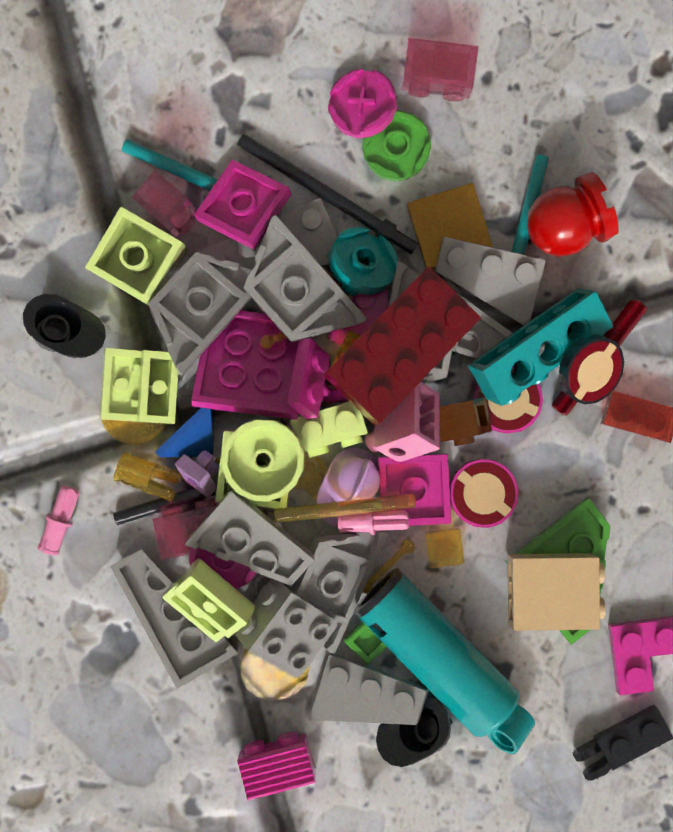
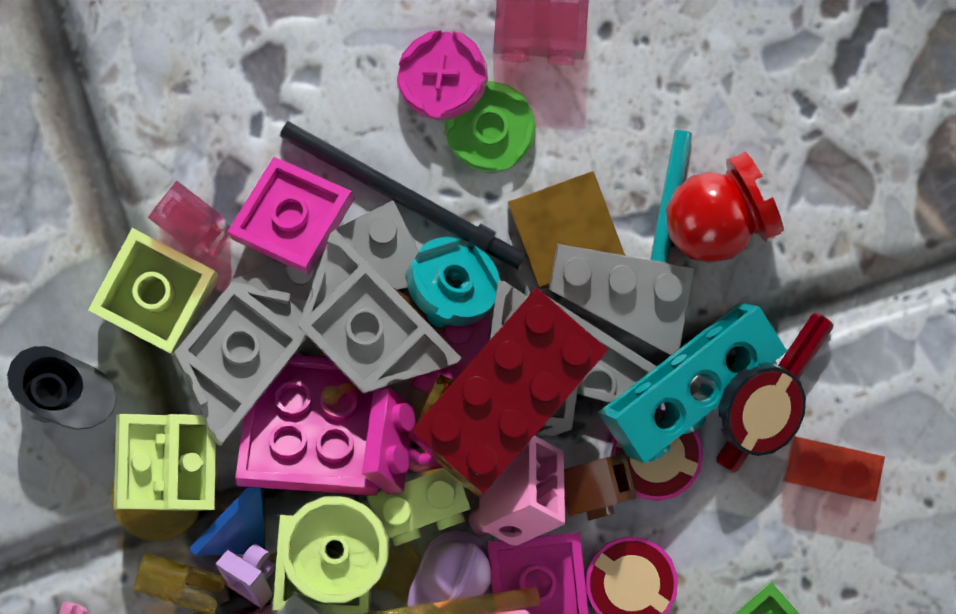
camera: 10 degrees left, 5 degrees down
(168, 164) = (190, 167): teal bar -> none

